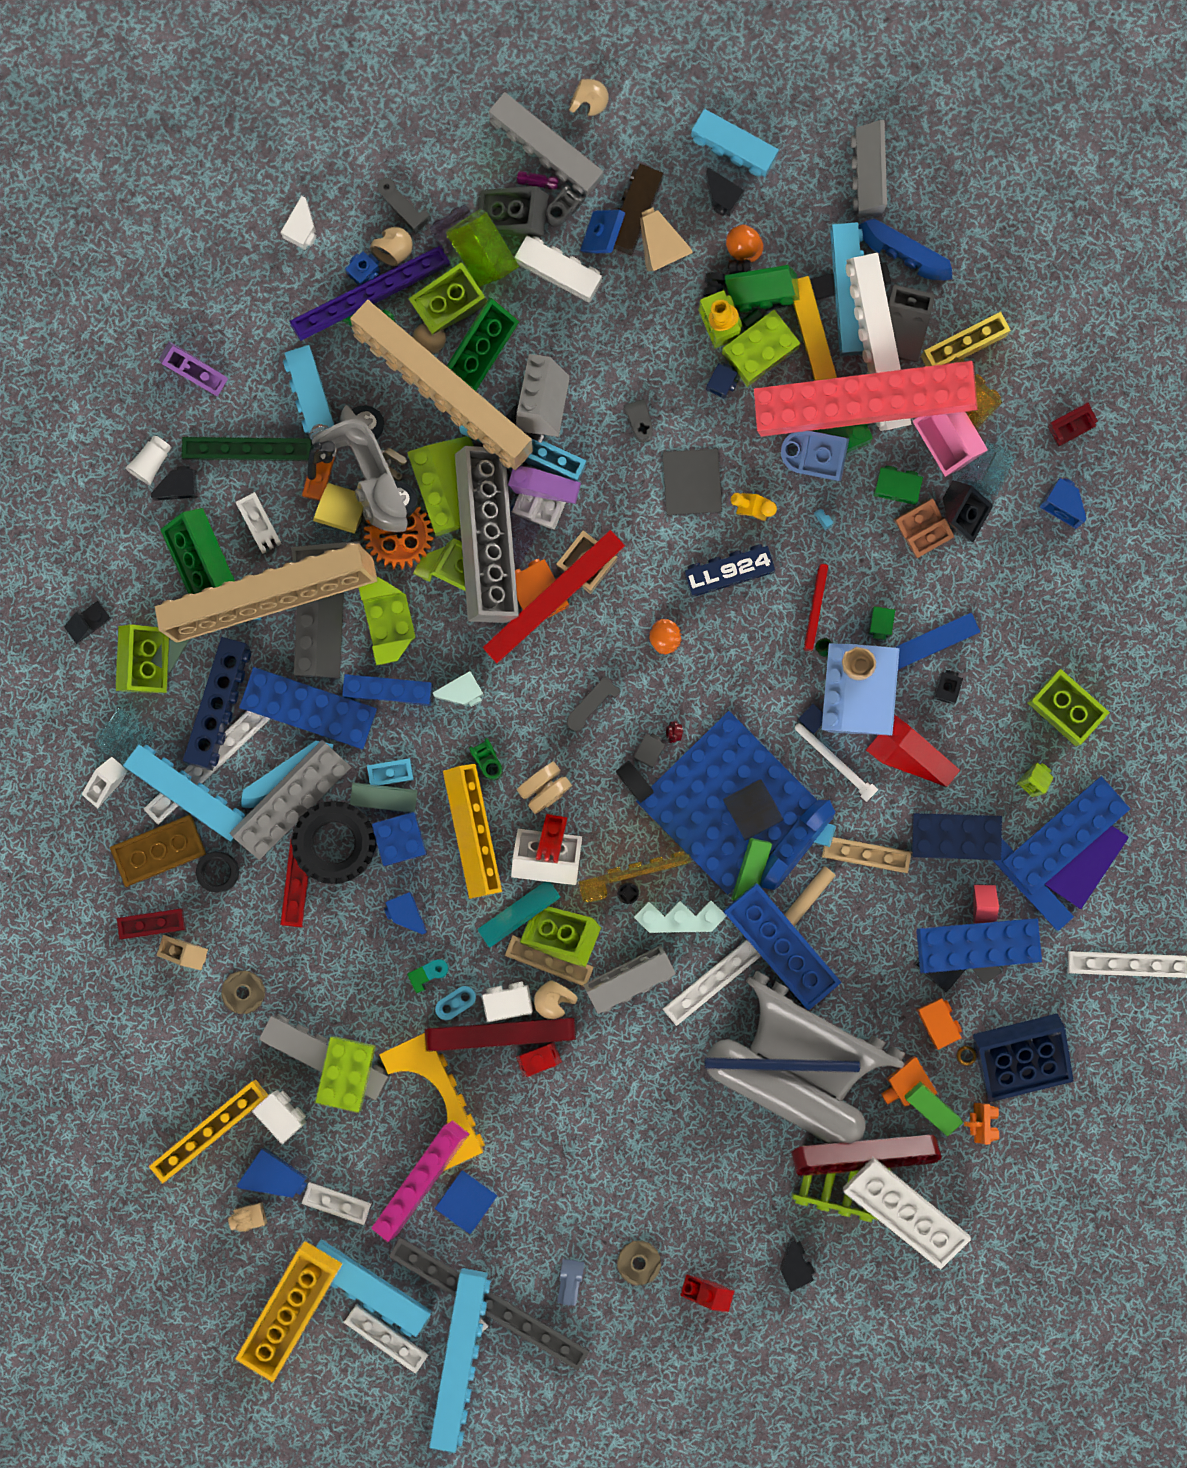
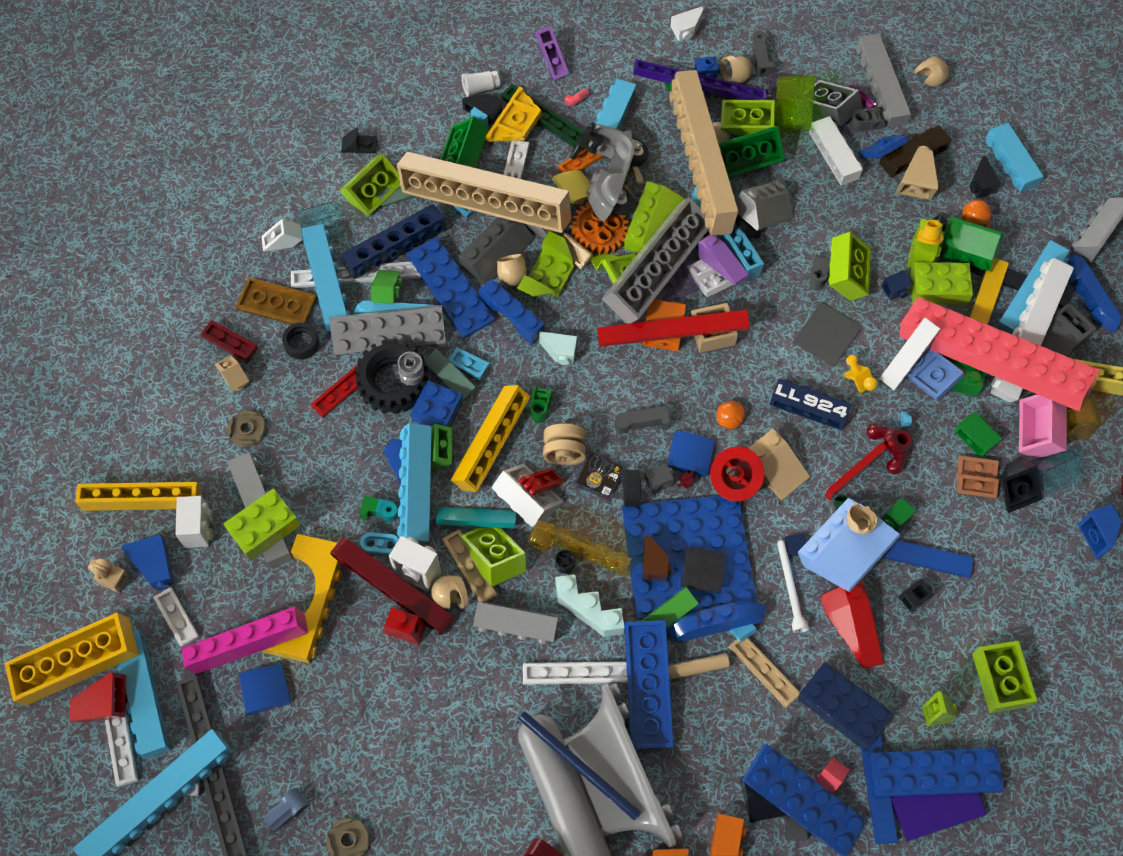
camera: 35 degrees right, 20 degrees down
(182, 502) = (480, 116): none -> medium azure tile
(222, 477) = (516, 119): none -> yellow wing
(252, 758) = (386, 286): none -> bright green brick
(261, 395) = (573, 100): none -> coral arm
(344, 1323) = (100, 701): none -> red slope
(352, 829) = (410, 368): none -> light grey wheel
(359, 649) = (511, 269): none -> tan helmet
(399, 578) = (579, 253): none -> tan tile
(432, 877) = (441, 446): none -> bright green brick
(443, 929) = (415, 482): none -> medium azure brick
(594, 787) = (599, 476): none -> tile
(658, 703) = (690, 453): none -> blue slope
(666, 398) = (850, 266): none -> lime brick
(707, 835) = (655, 562): none -> reddish brown slope
(717, 698) = (737, 473): none -> red piece
(742, 656) = (781, 467): none -> tan slope
(786, 454) = (910, 353): none -> white tile
(832, 552) = (897, 443): none -> dark red head

